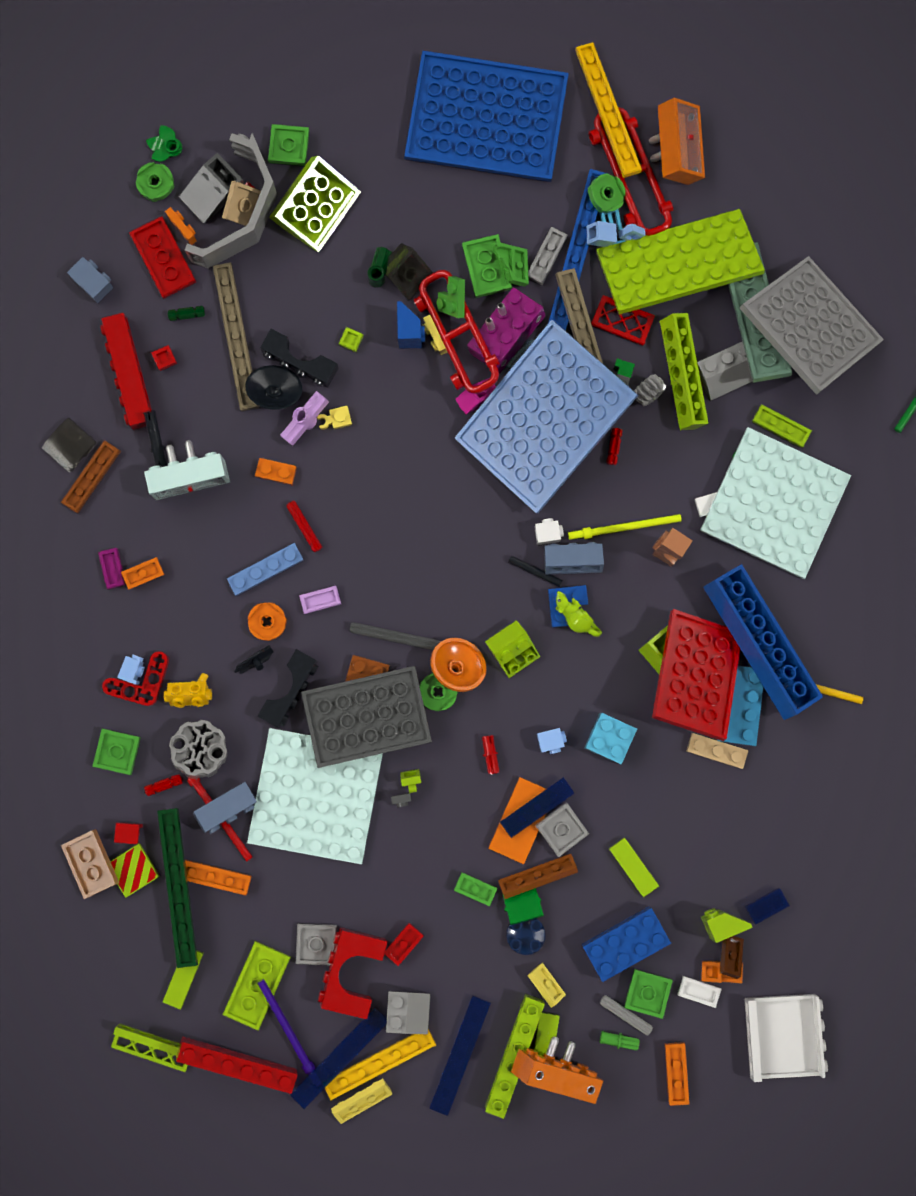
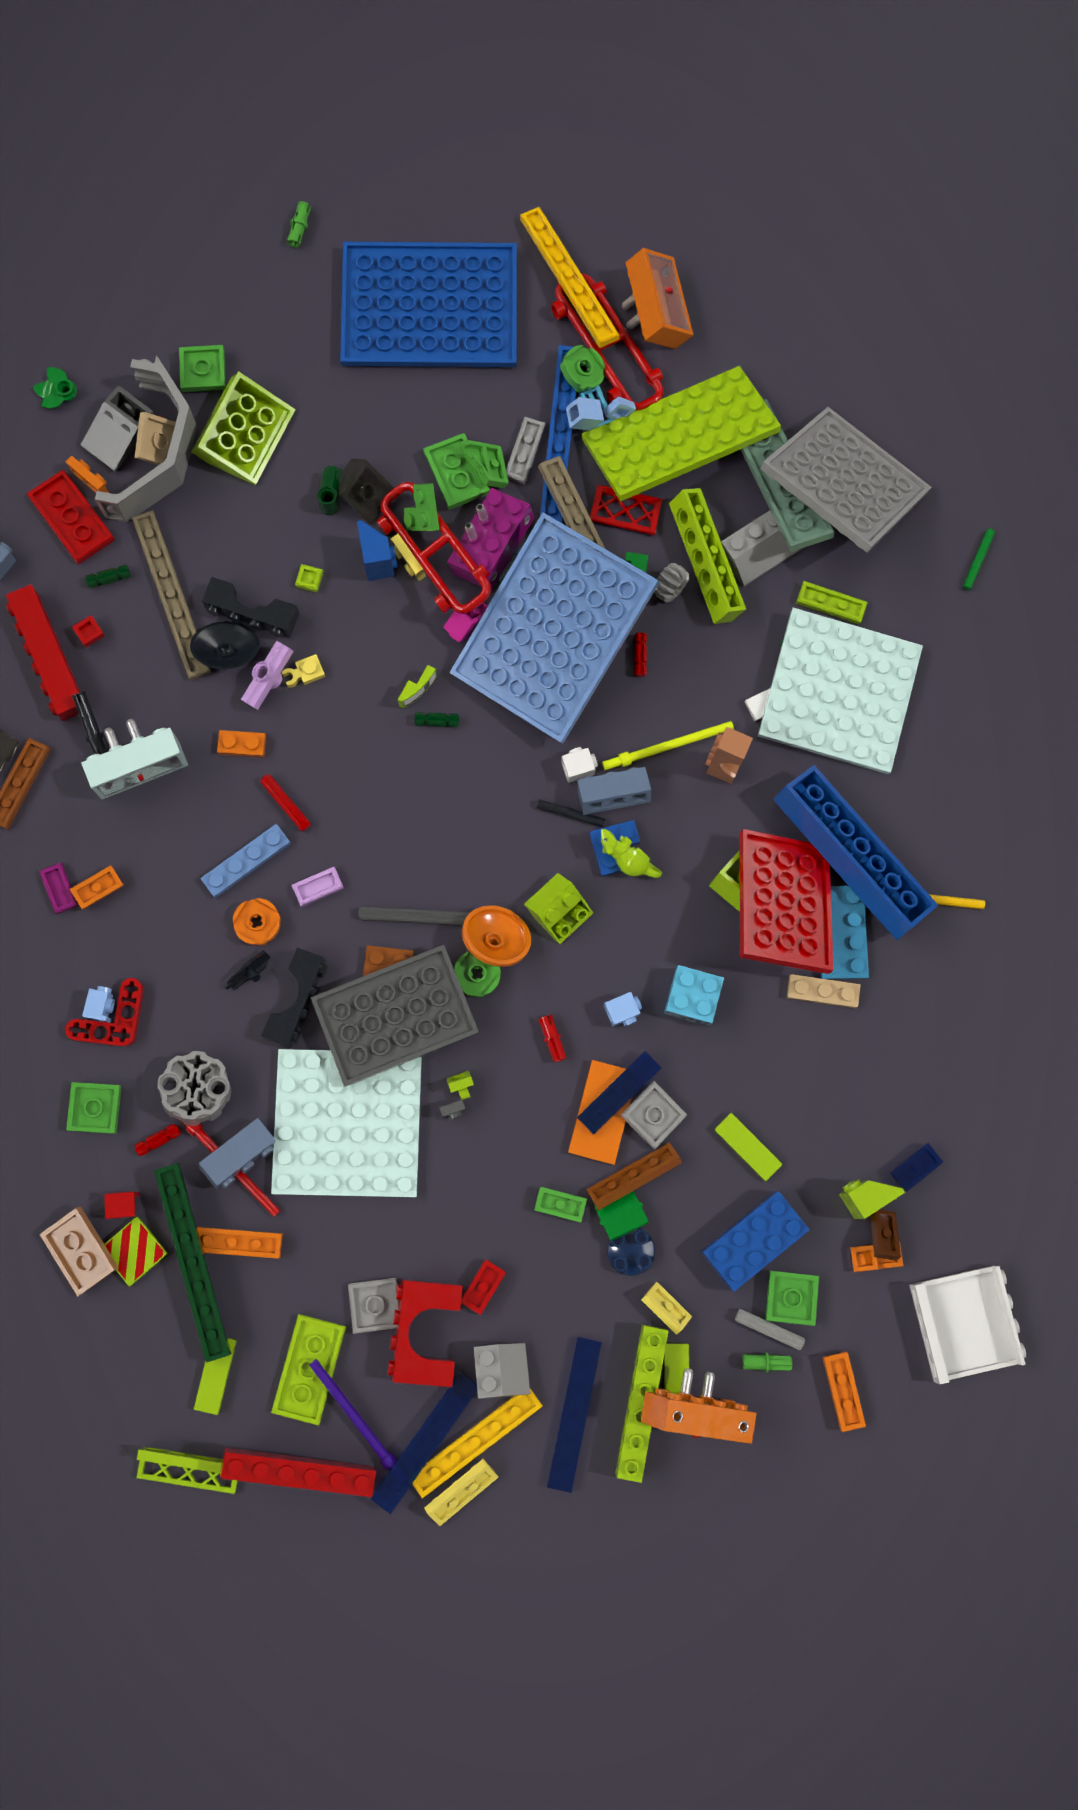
camera: 15 degrees left, 5 degrees down
(157, 171) = (52, 443): bright green plate -> none
(189, 693) = (173, 1022): yellow brick -> none
(387, 29) = (298, 224): none -> bright green pin
(421, 449) = (414, 691): none -> lime slope
(437, 475) = (436, 719): none -> dark green axle
(699, 991) = (853, 1285): white tile -> none

